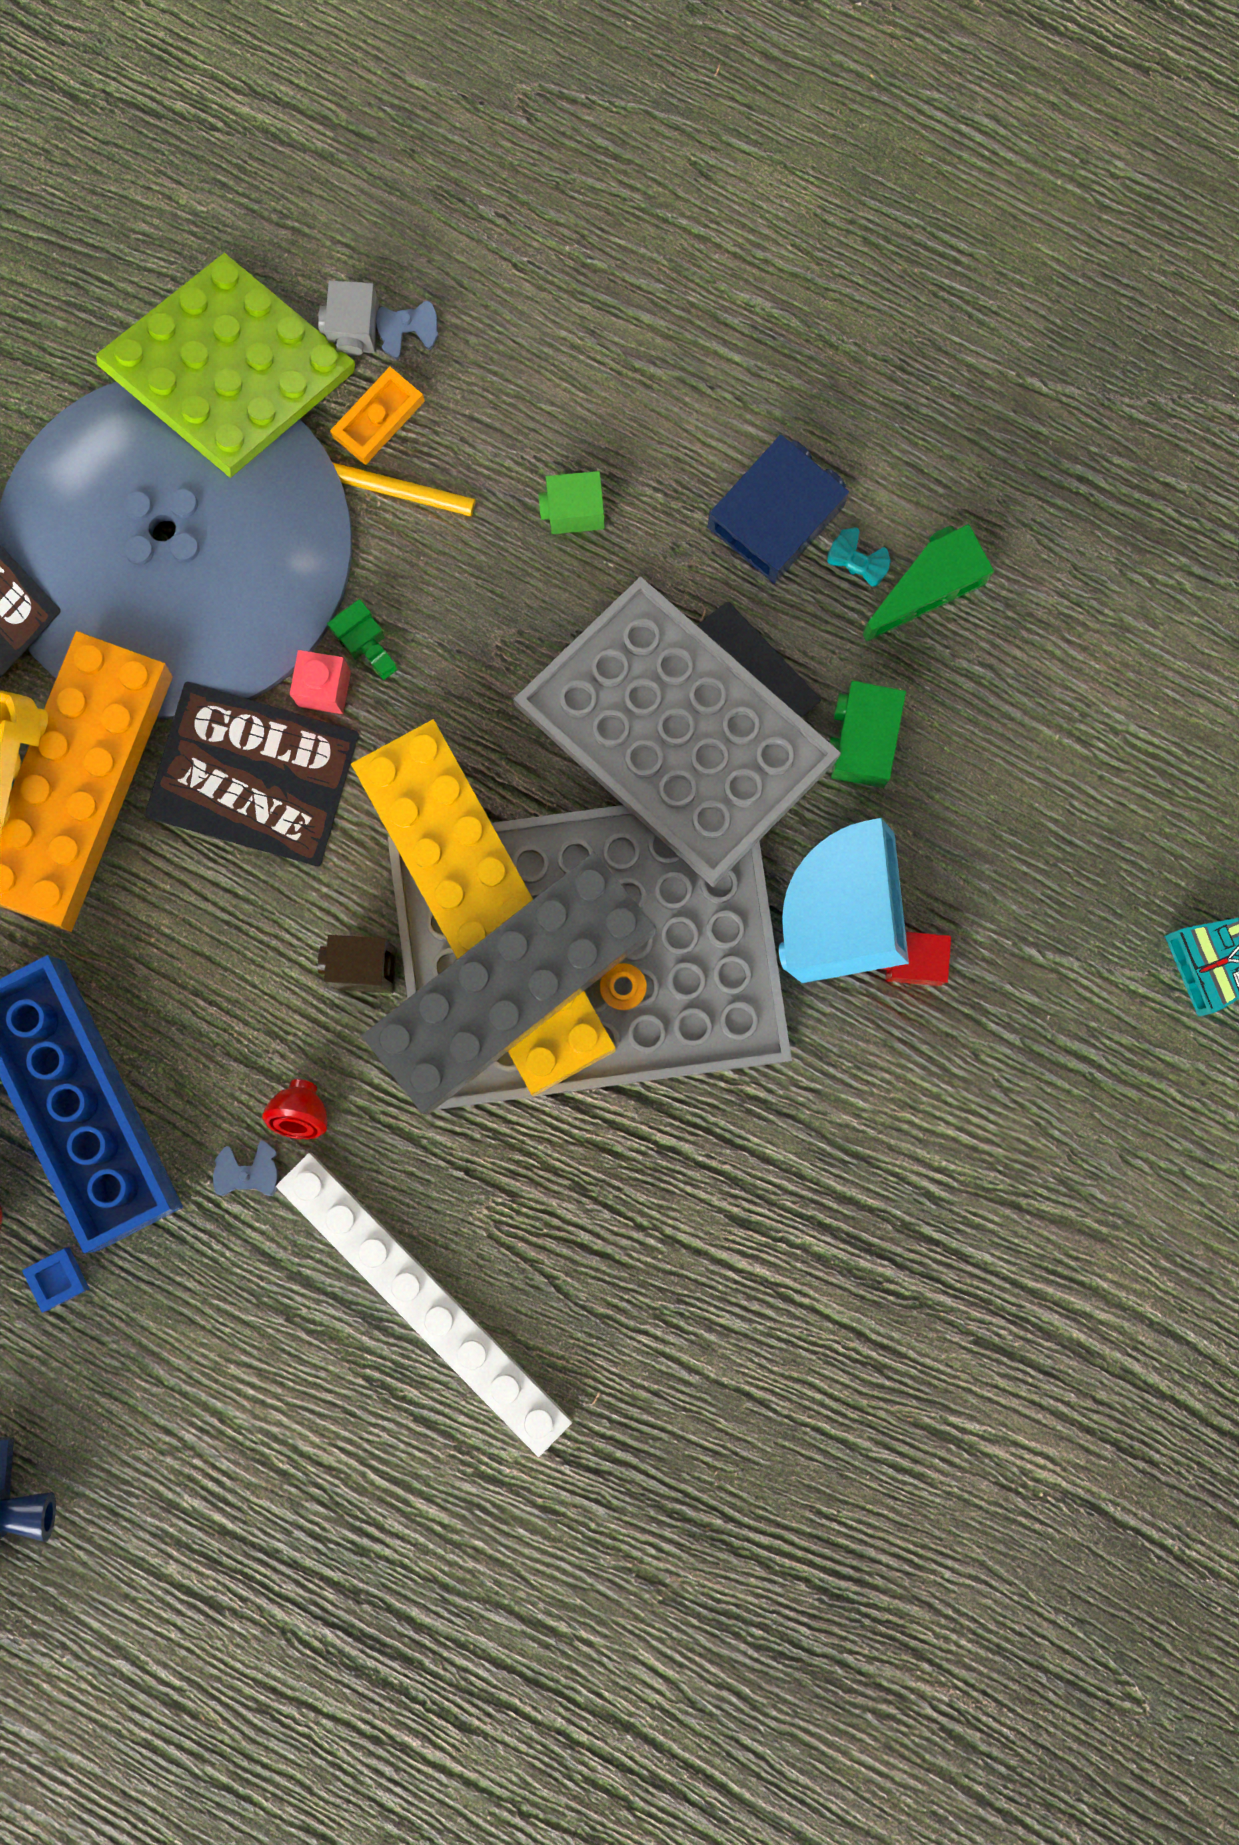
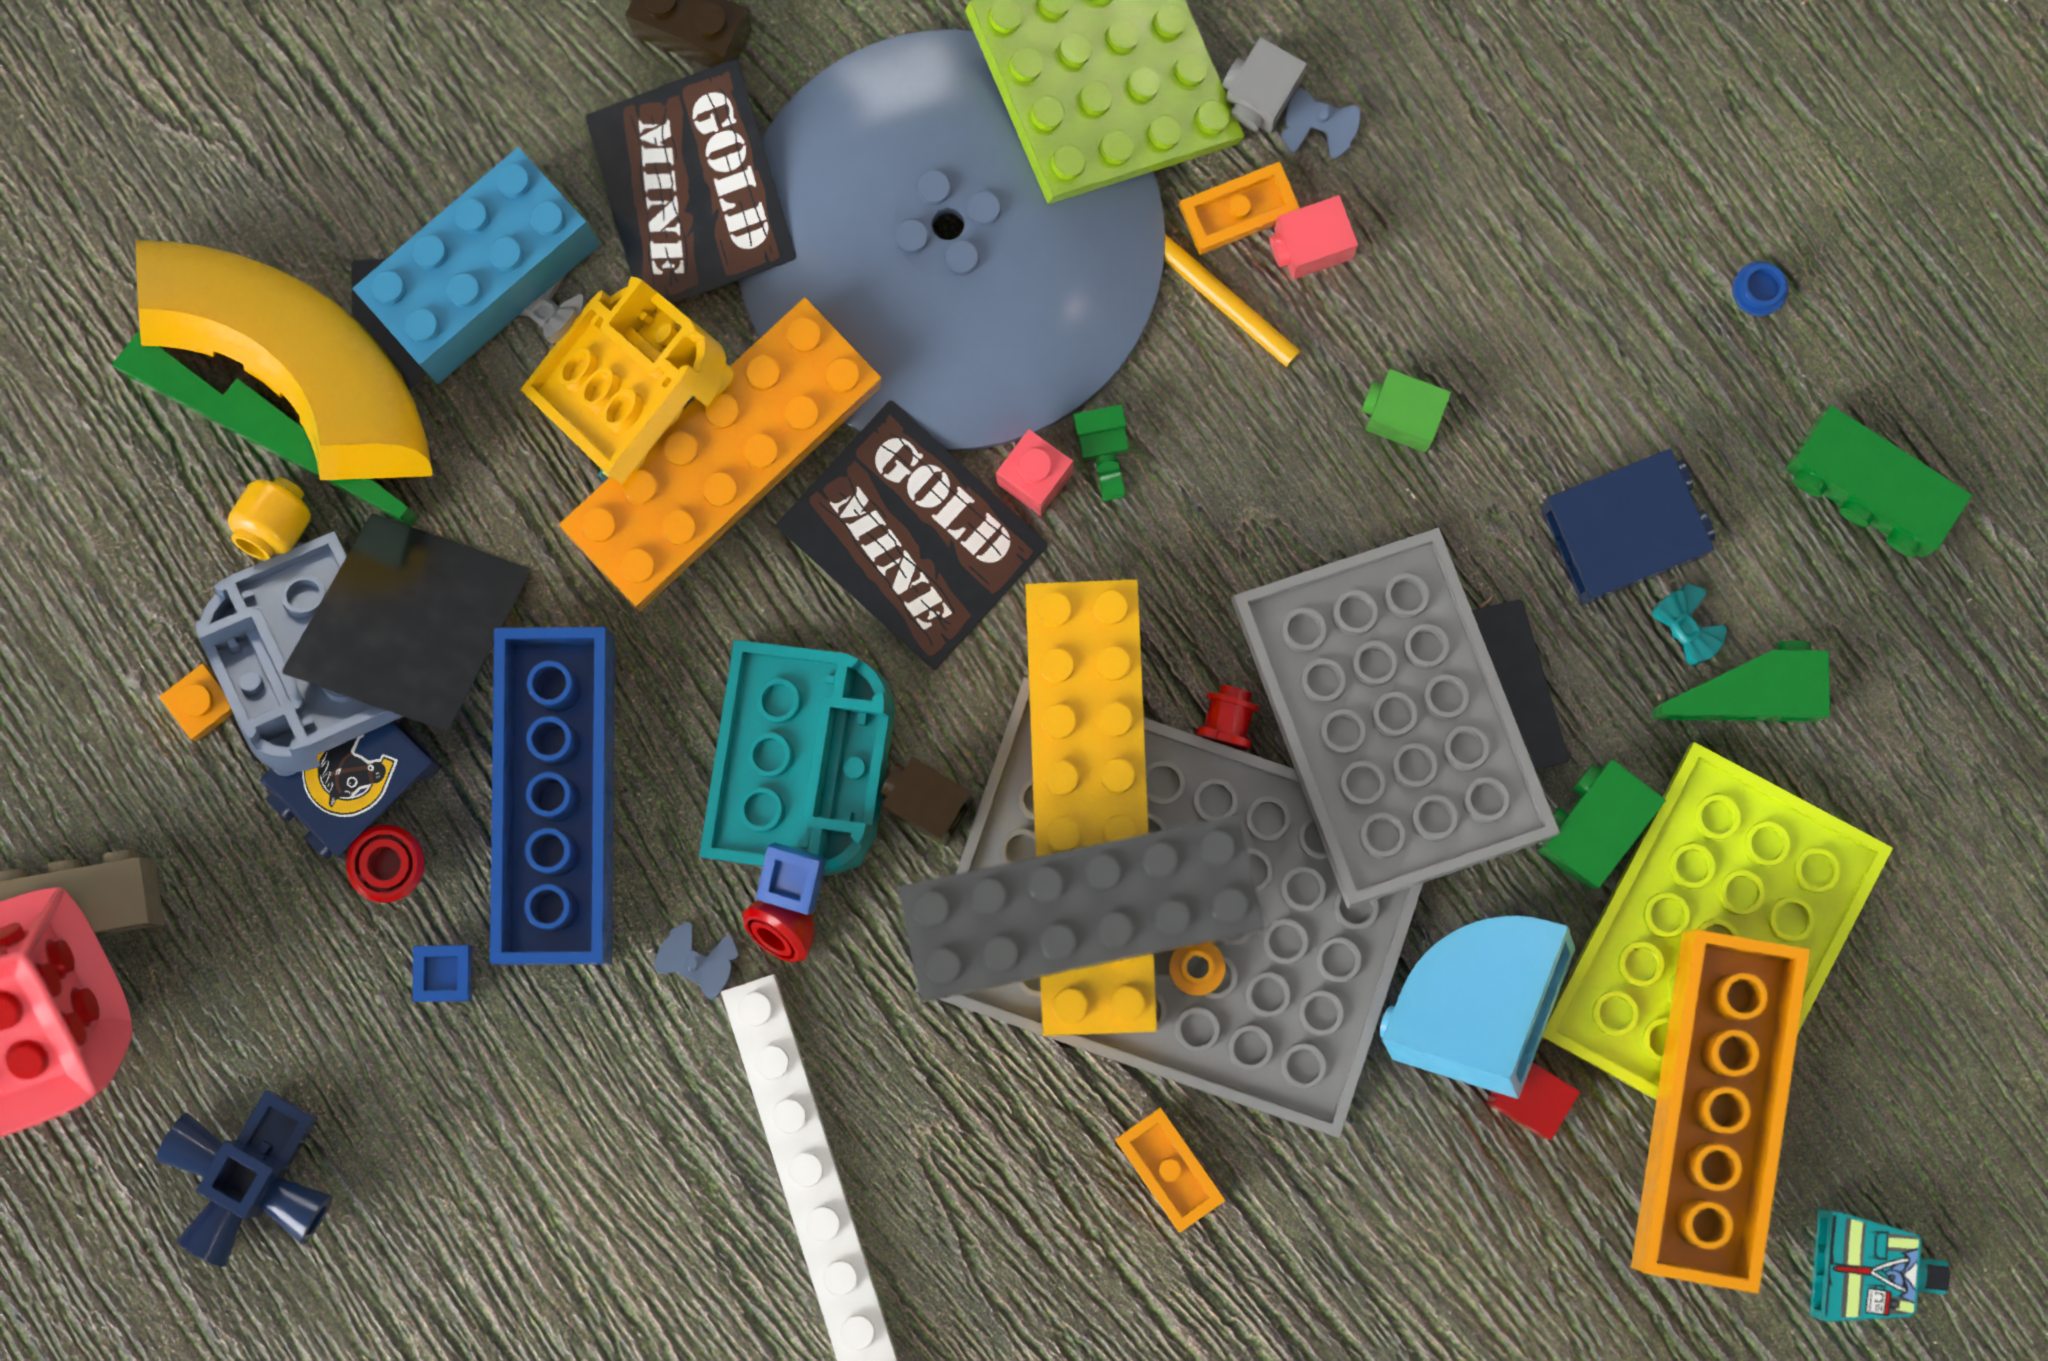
camera: 30 degrees right, 0 degrees up
(248, 983) = (798, 756): none -> teal plate
(283, 1073) = (791, 878): none -> plate
(443, 410) = (1313, 238): none -> coral brick
(555, 791) = (1228, 717): none -> red brick
(678, 1148) = (1169, 1169): none -> light orange plate
(787, 291) = (1760, 288): none -> blue plate
(942, 388) = (1876, 483): none -> green brick
(994, 779) = (1720, 860): none -> neon yellow plate
(1060, 896) = (1720, 1110): none -> light orange brick

